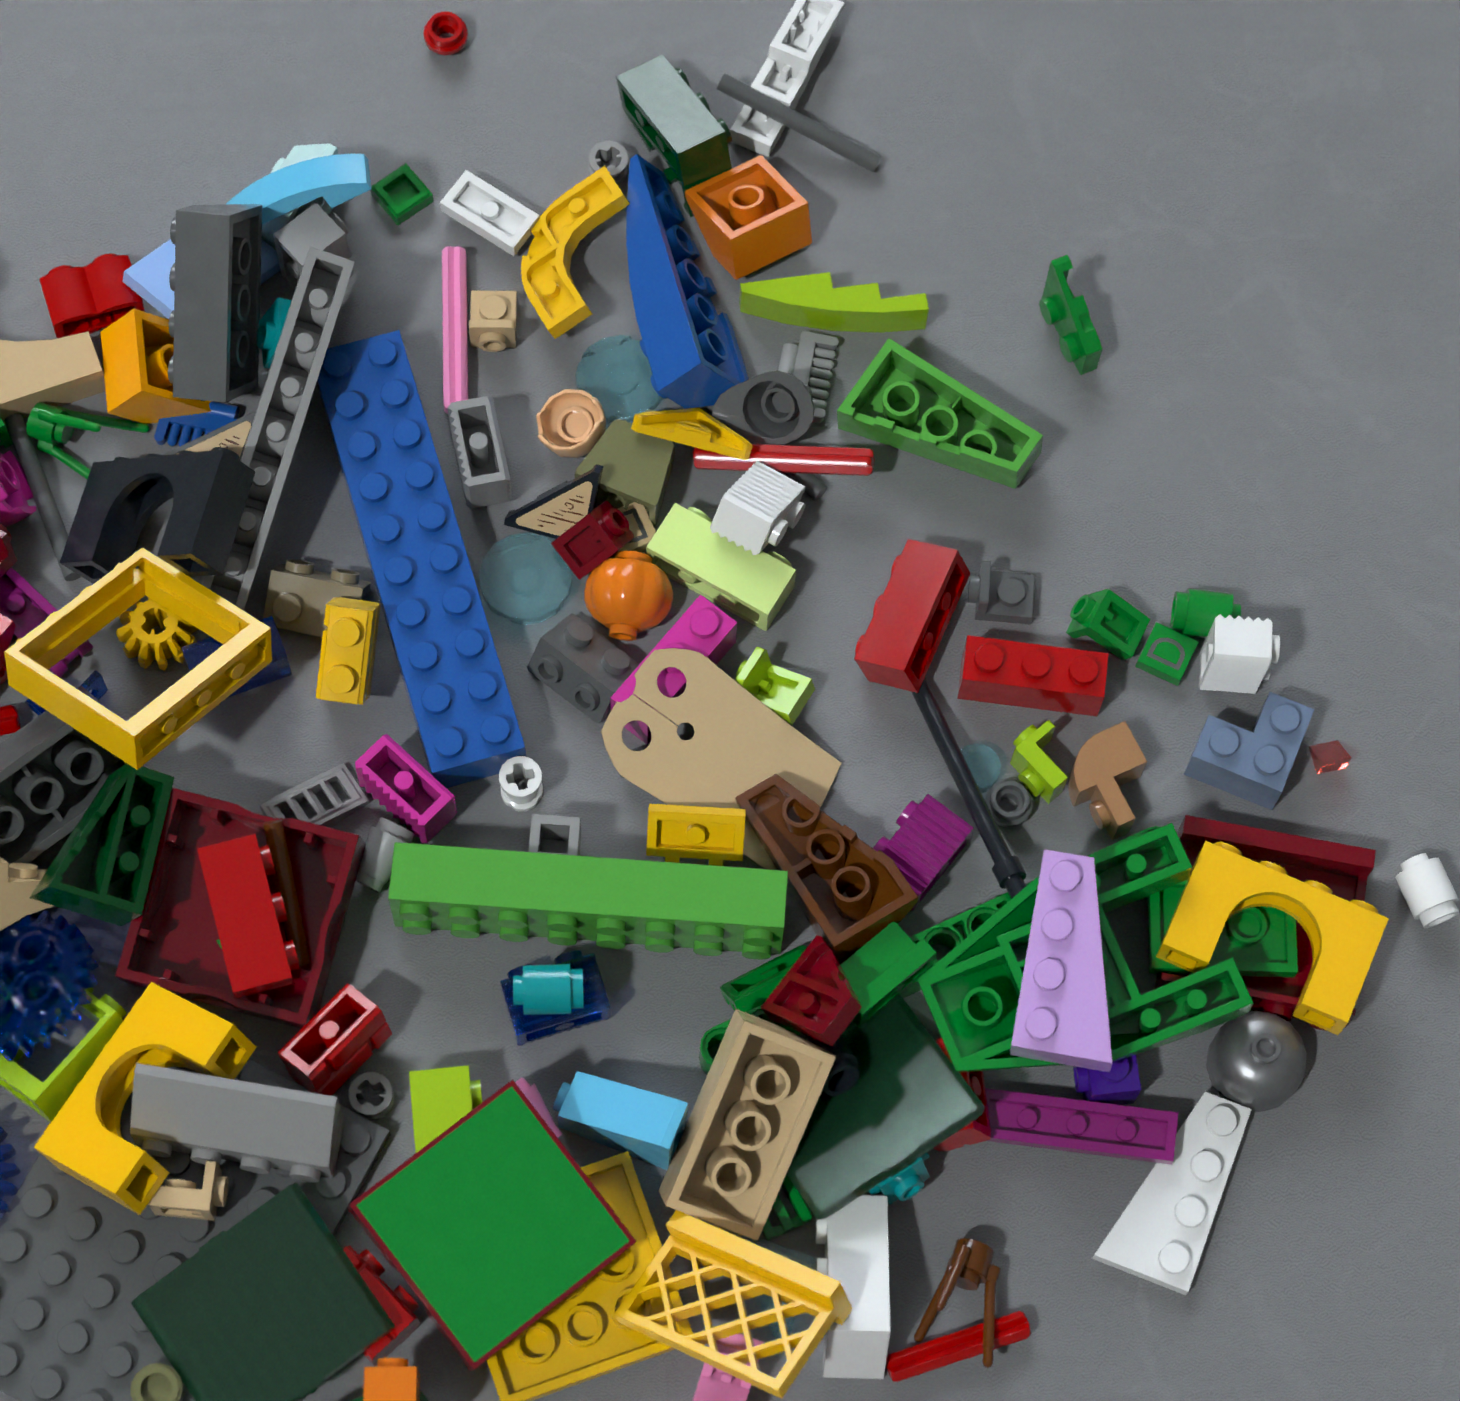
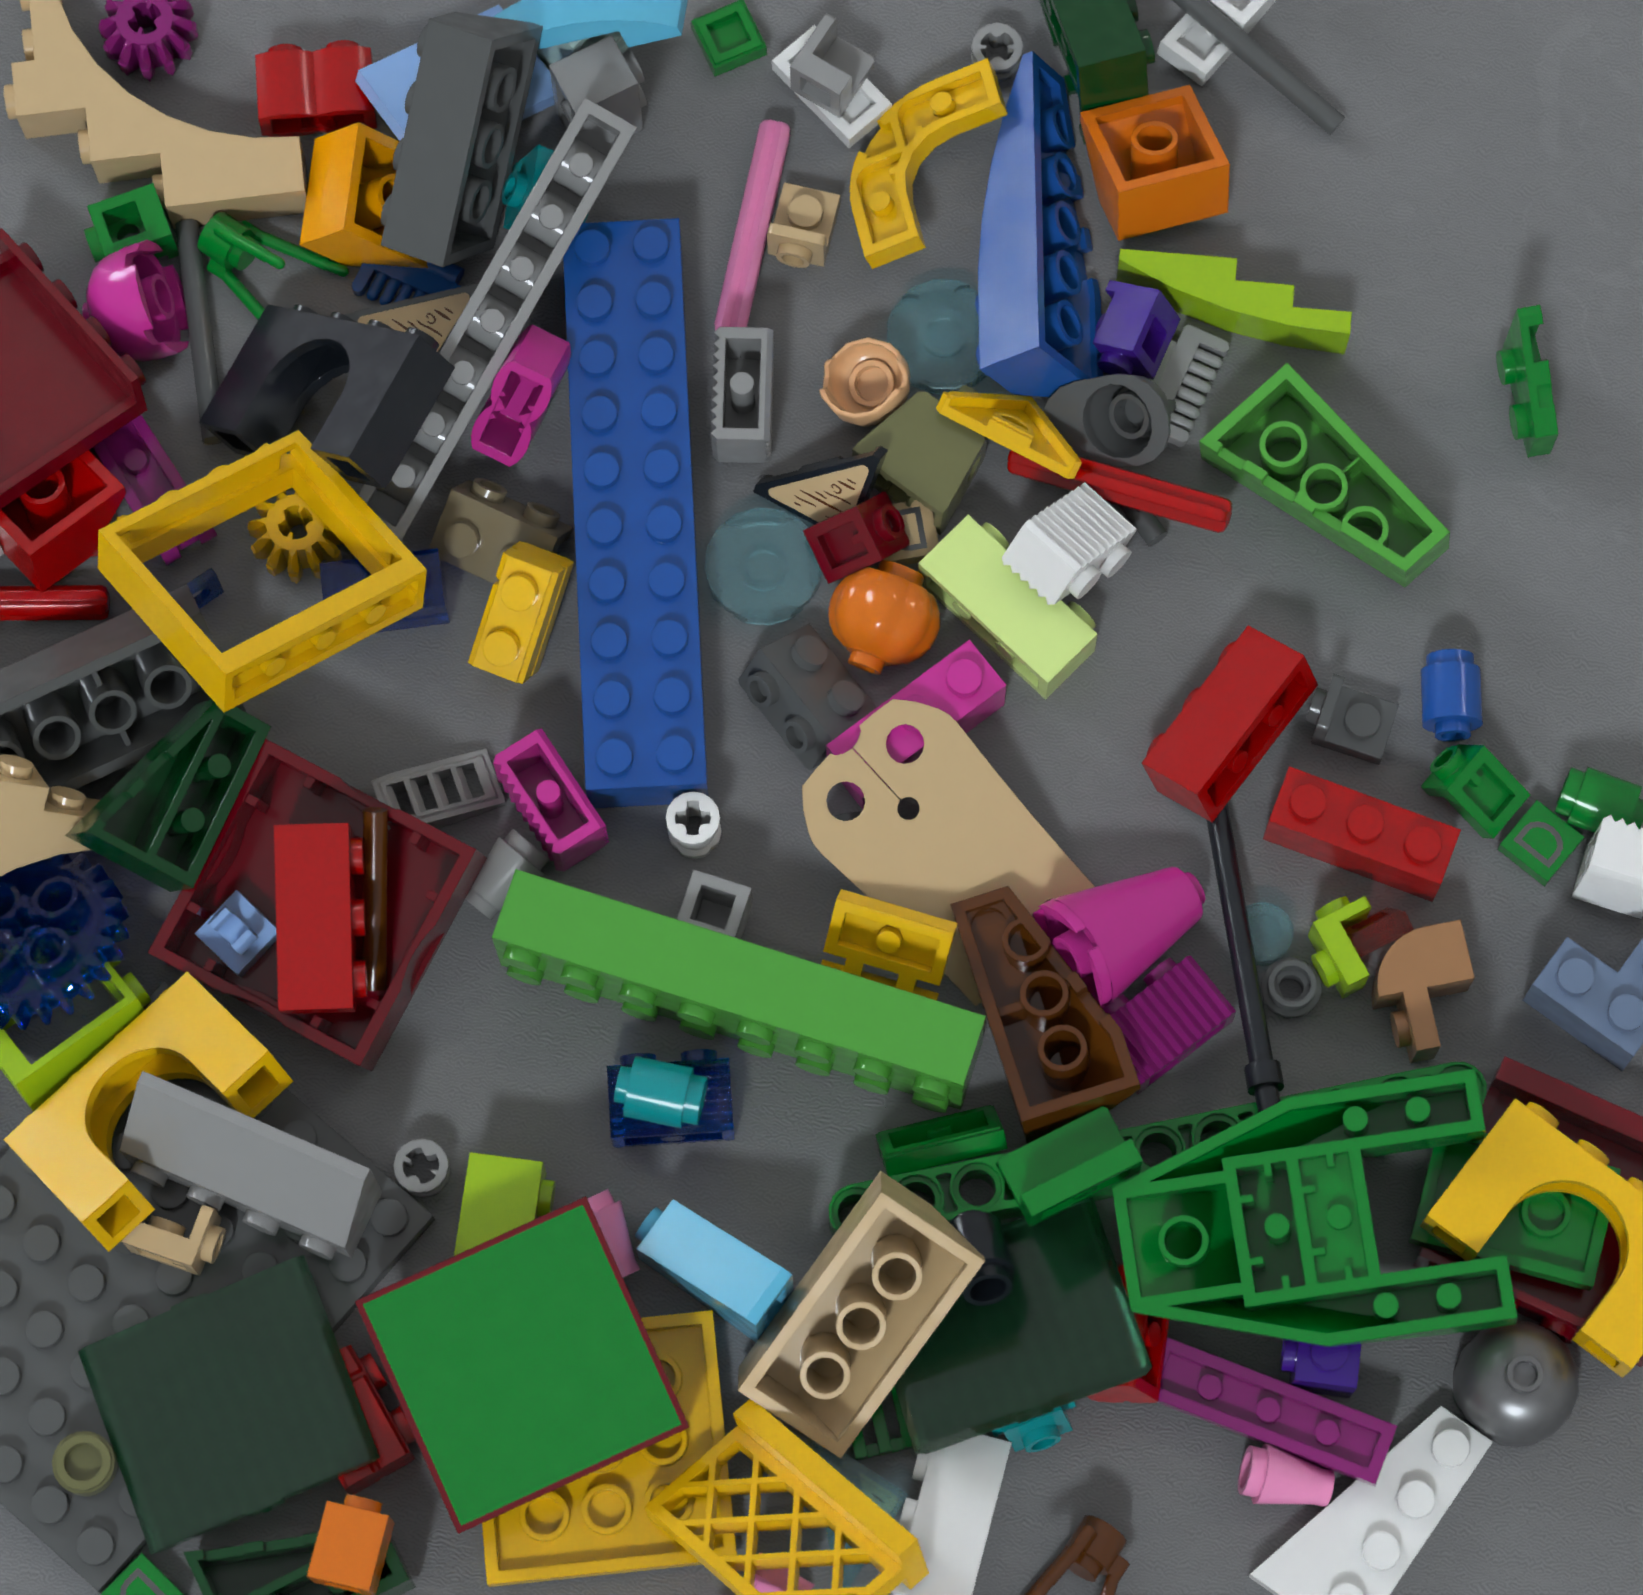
camera: 20 degrees right, 5 degrees up
(183, 947) = (238, 933): none -> light blue tile
(309, 487) = (520, 395): none -> dark pink brick
(335, 1042) = (392, 1095): red brick -> none
(486, 198) = (829, 68): none -> light grey panel
(765, 340) = (1134, 330): none -> dark purple brick
(774, 686) = (1035, 774): lime bracket -> none
(814, 995) = (982, 1176): dark red wing -> none
(870, 784) = (1121, 927): none -> dark pink cone
(1063, 980) = (1287, 1230): lavender wedge -> none
(1066, 743) = (1378, 930): none -> clear red tile
(1072, 558) = (1451, 694): none -> blue brick
(1099, 1175) = (1282, 1478): none -> bright pink cone

